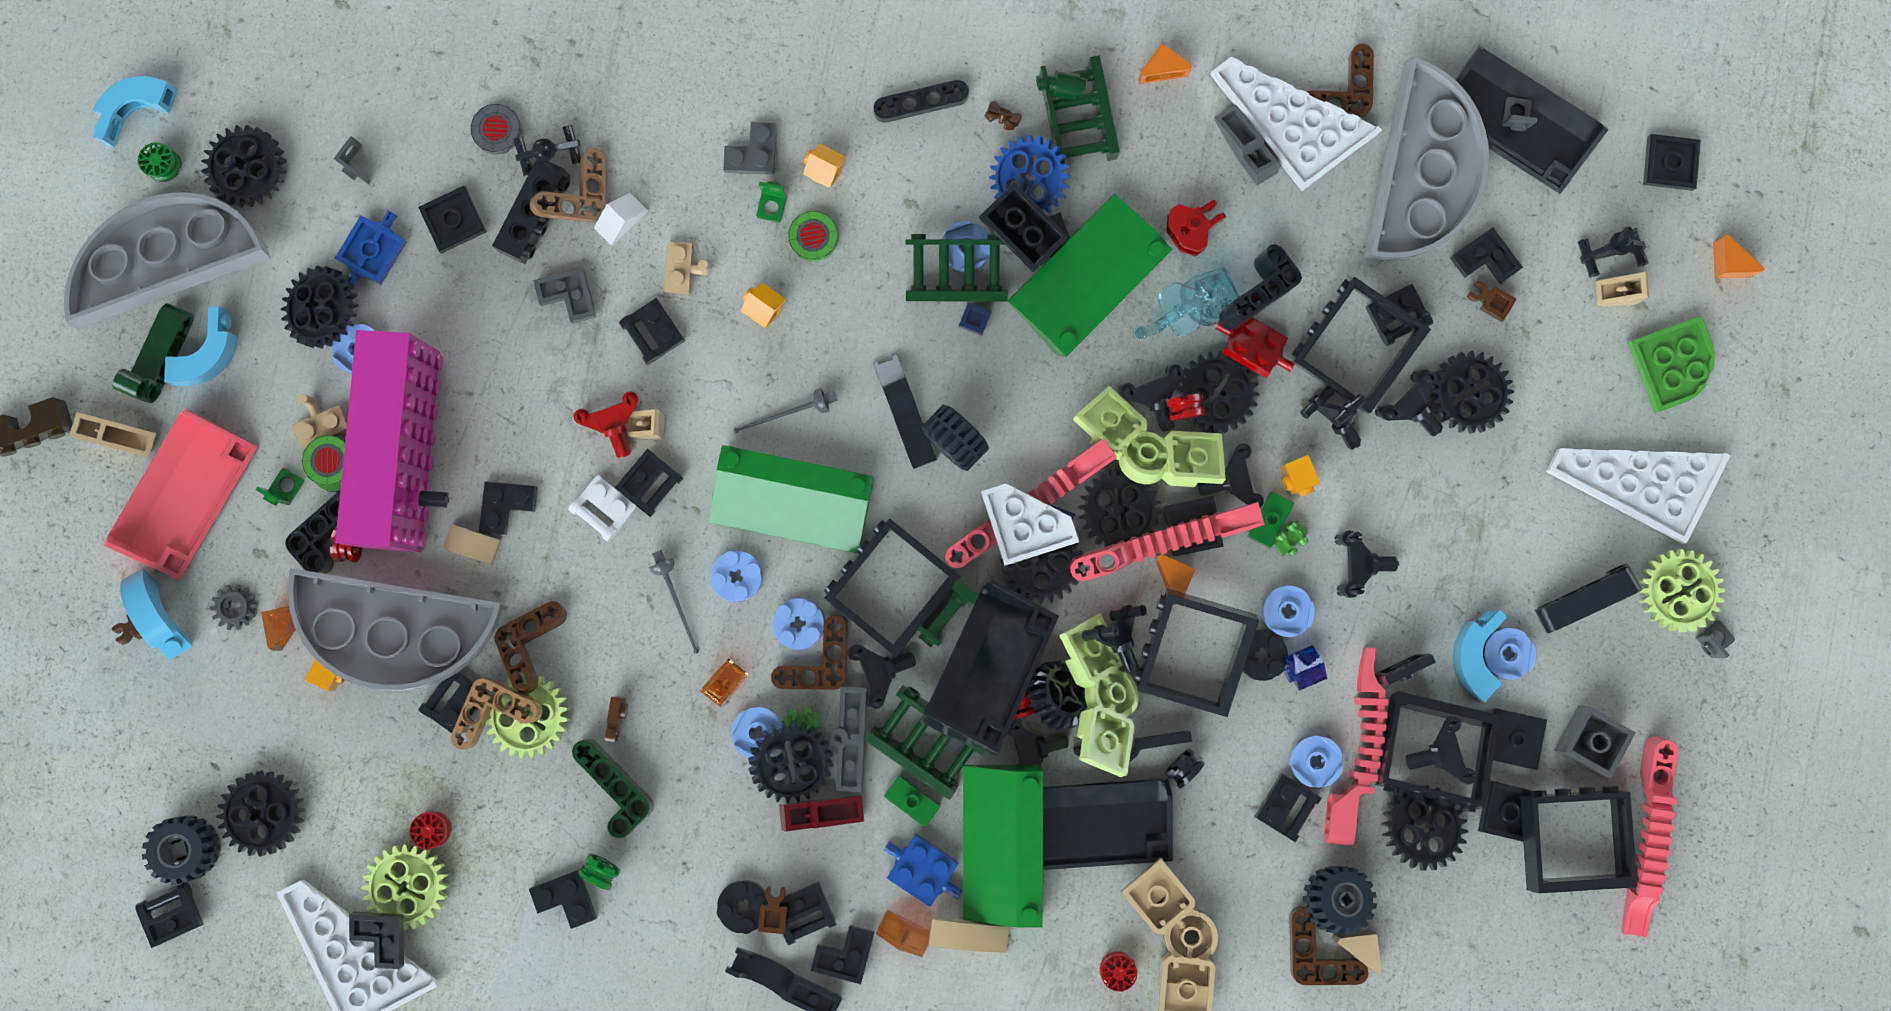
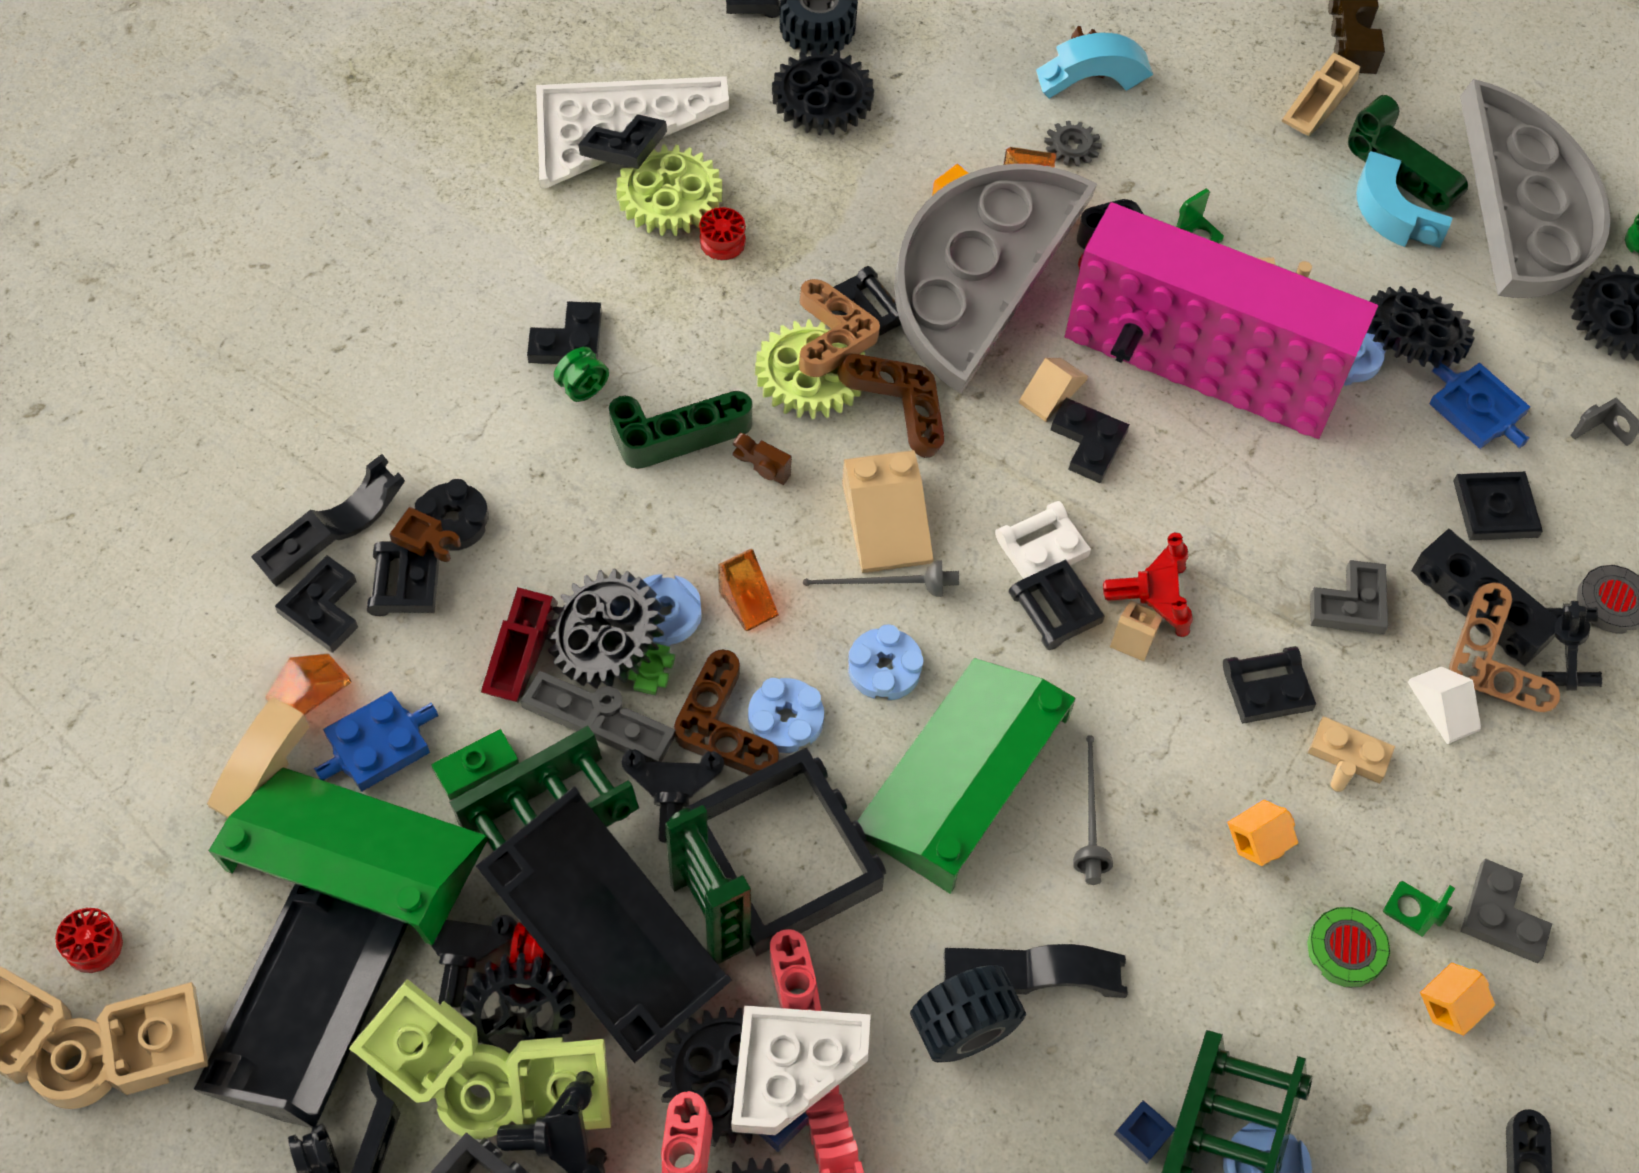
camera: 110 degrees right, 25 degrees down
(180, 494) = (1228, 134): coral slope -> none
(623, 617) = (887, 511): none -> tan slope

